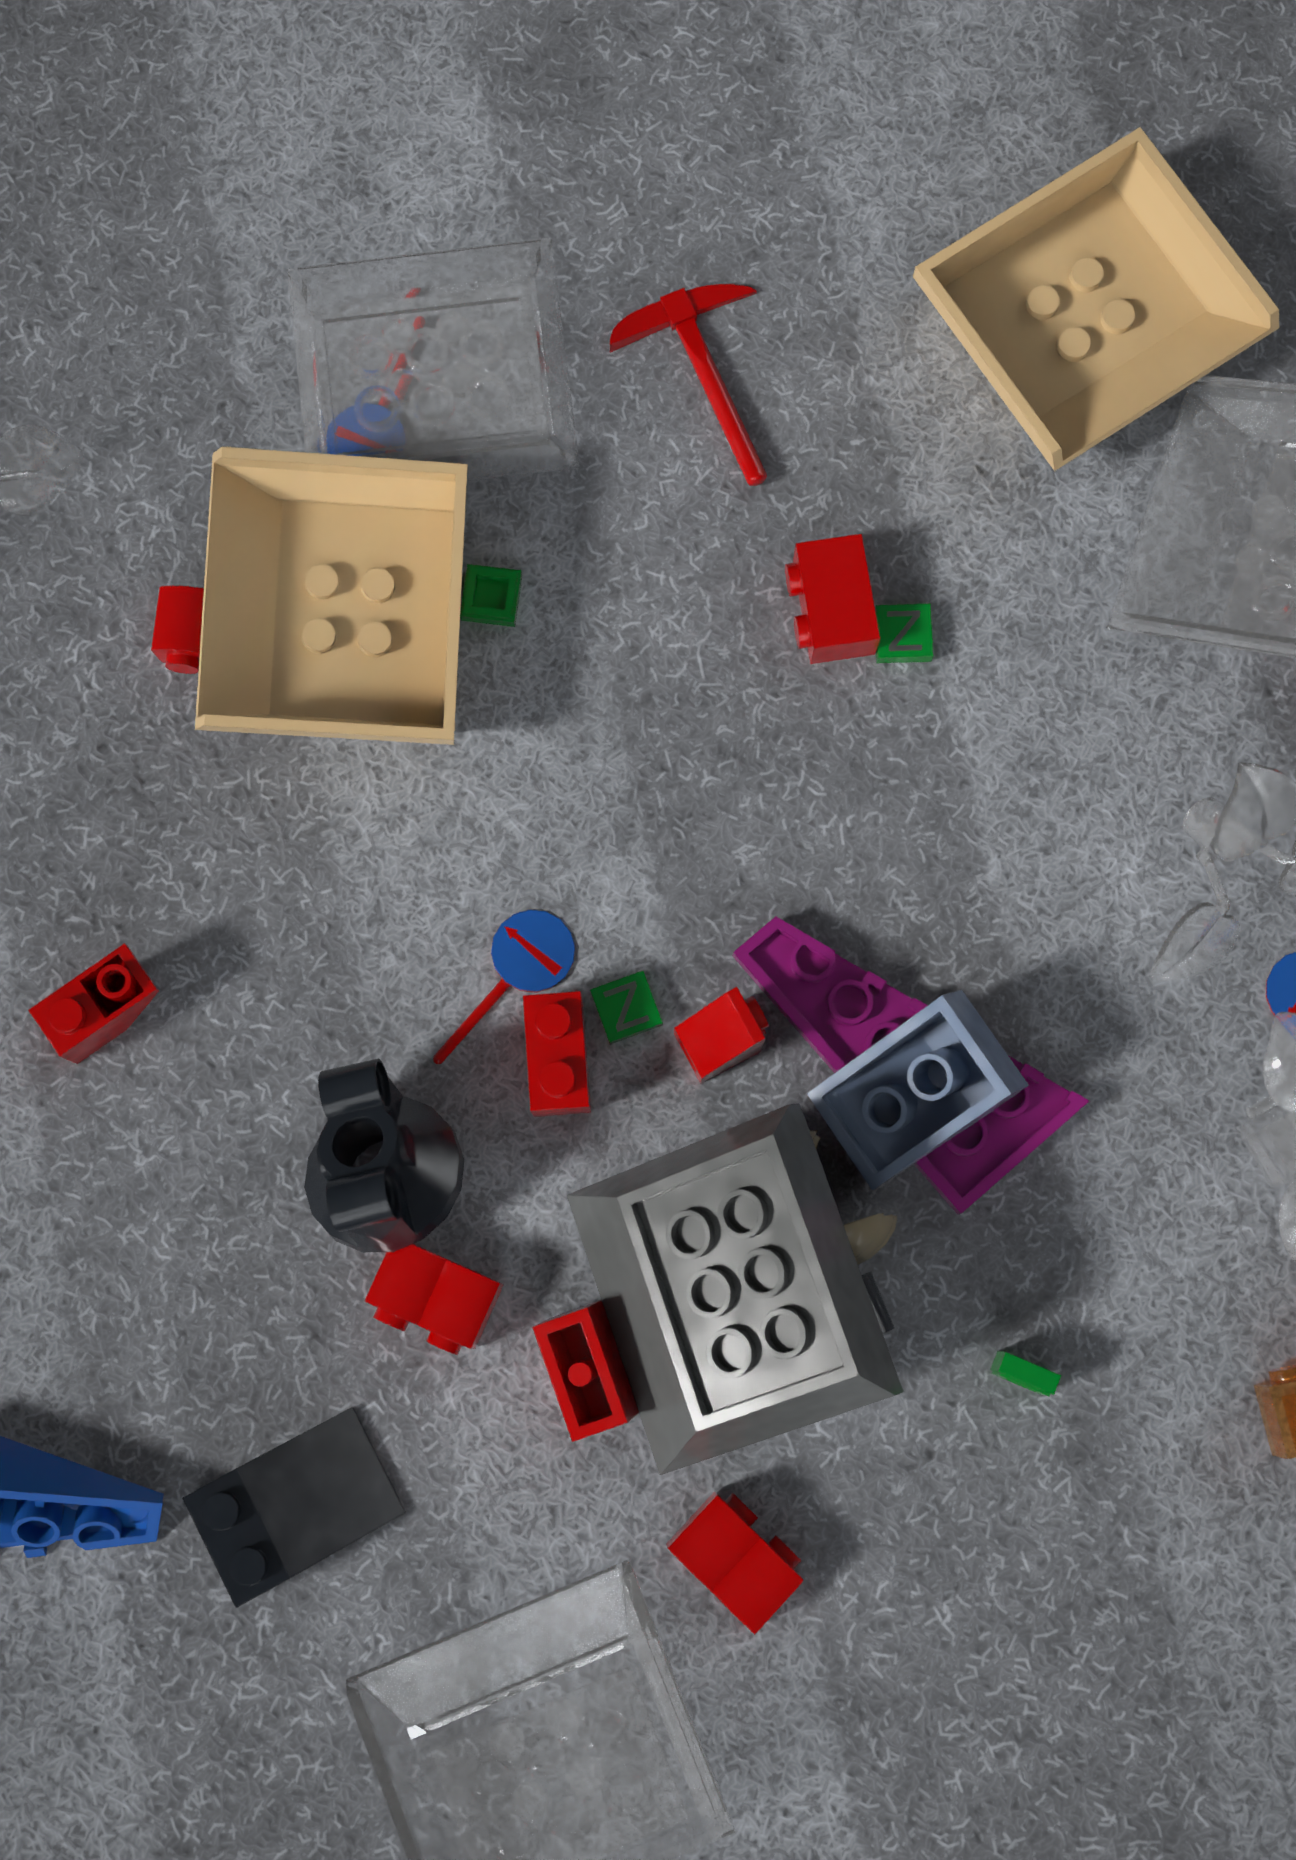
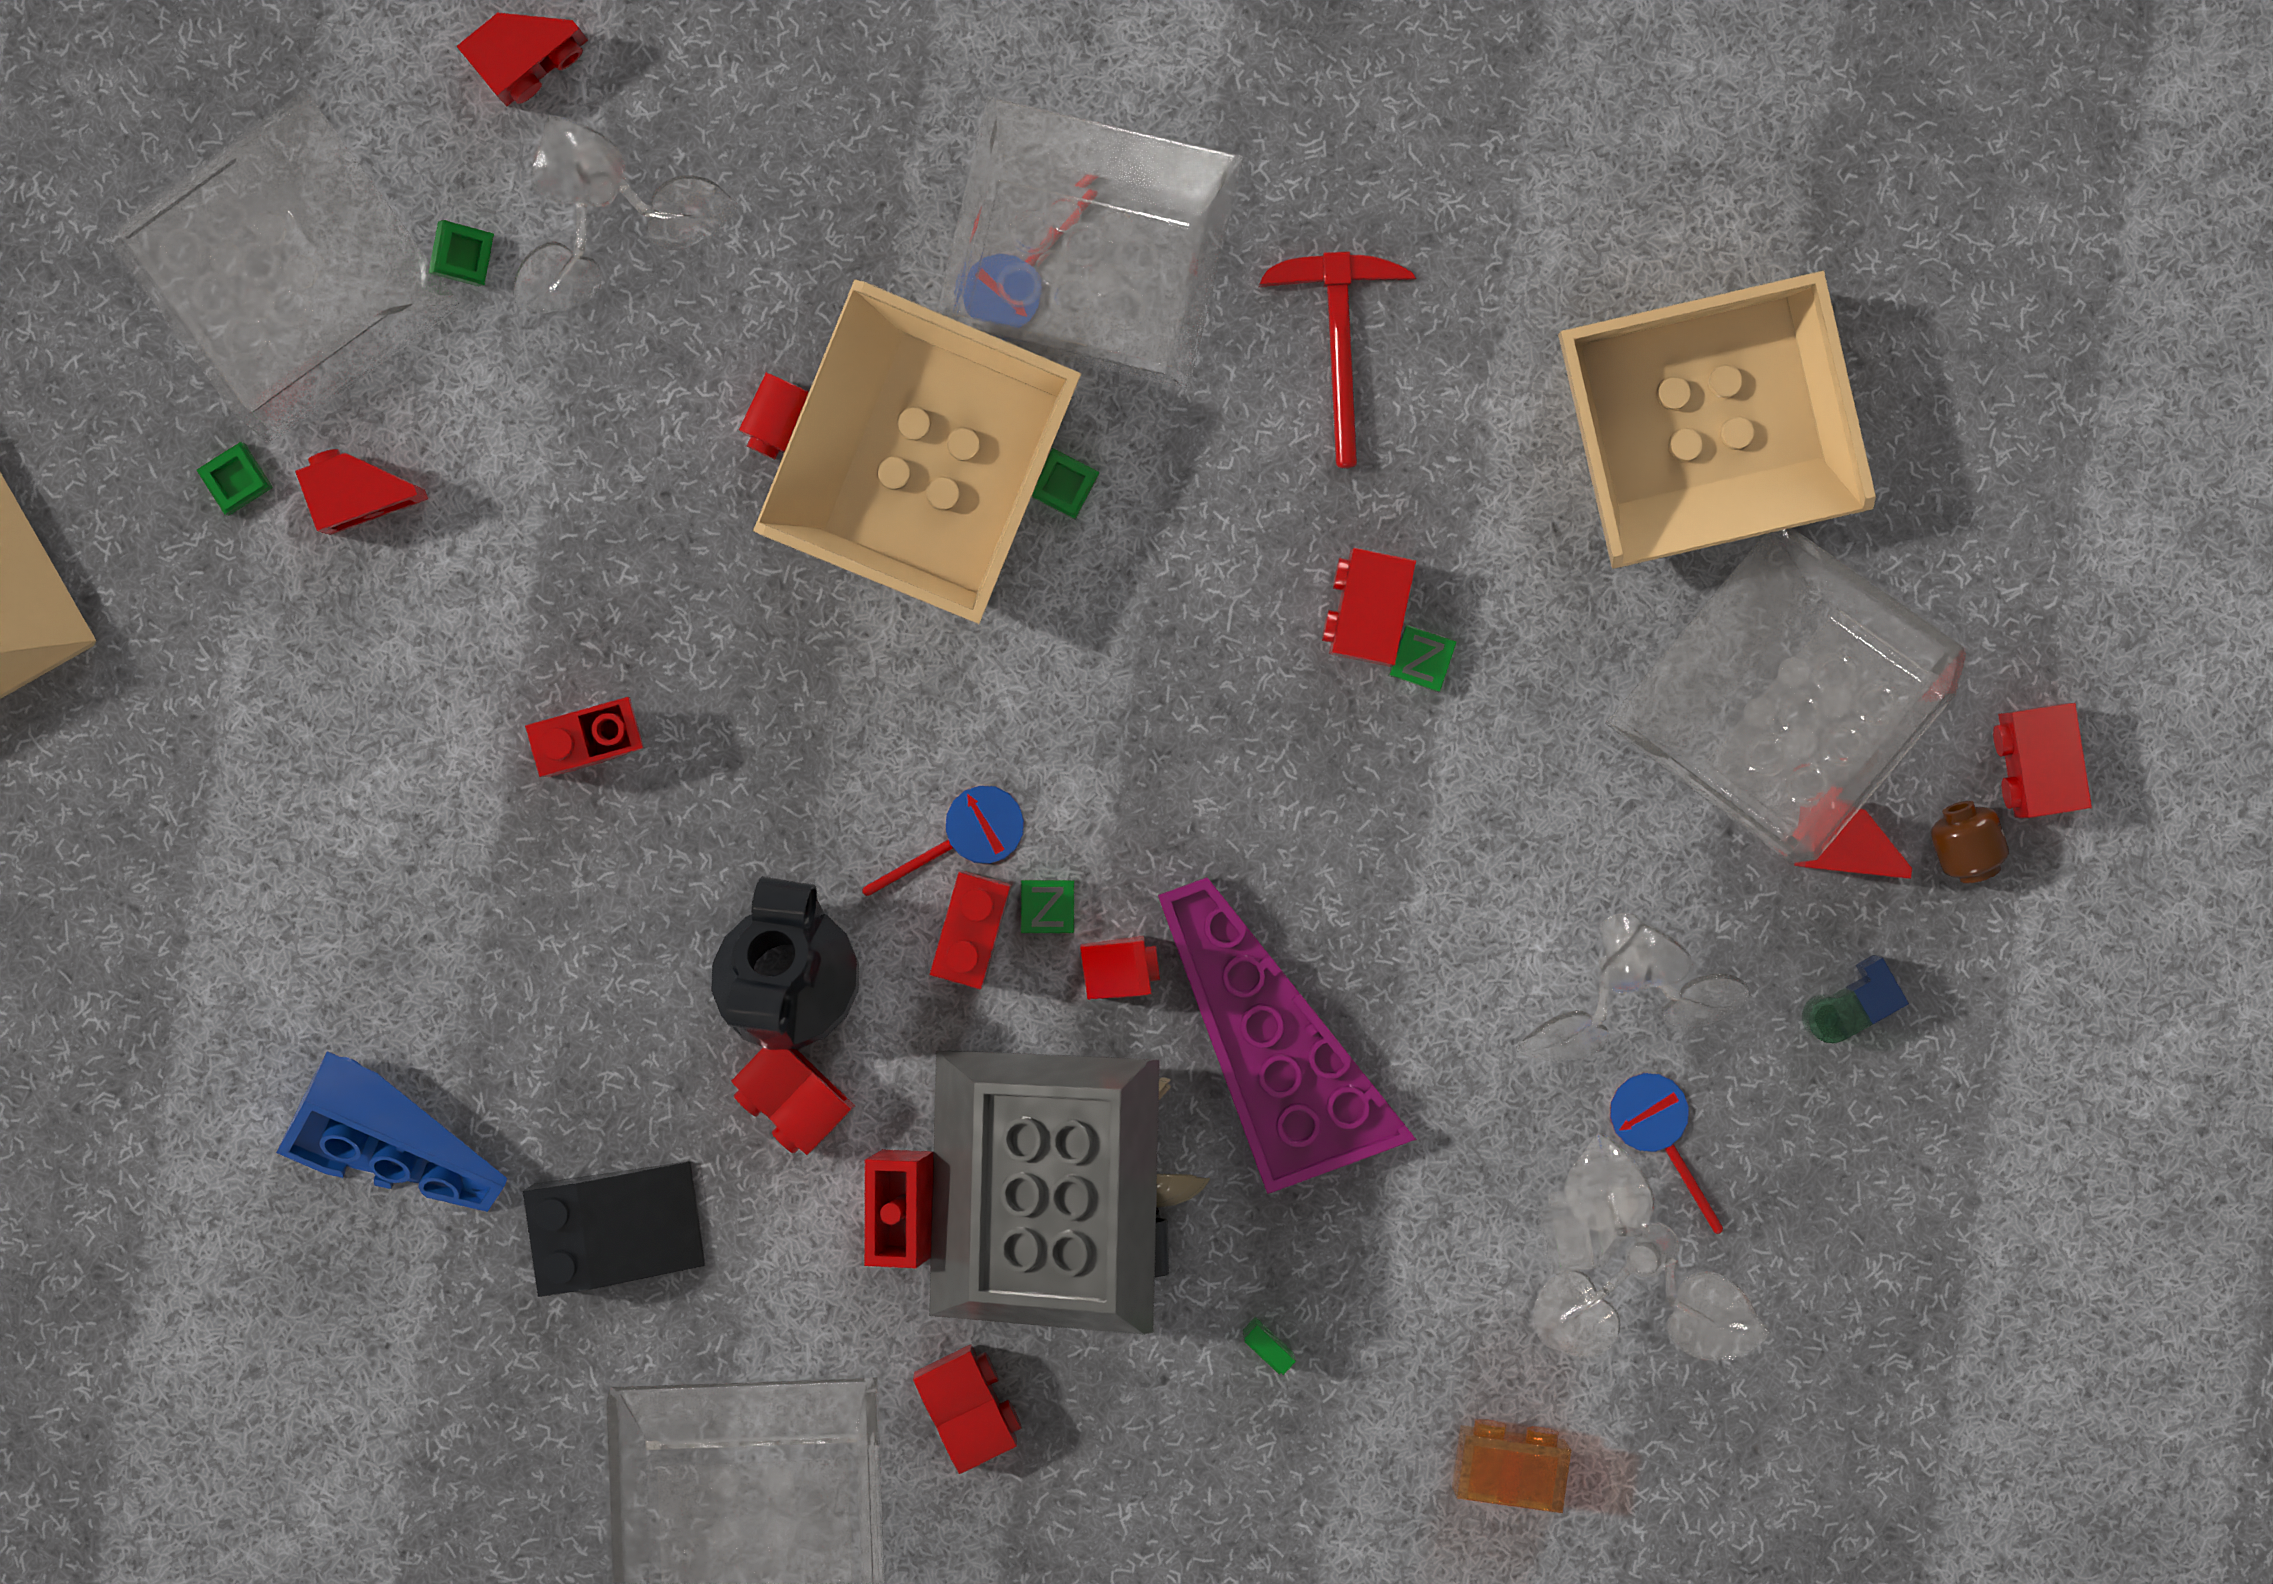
camera: 15 degrees right, 10 degrees up
(917, 1088) = (1270, 1078): sand blue slope -> none

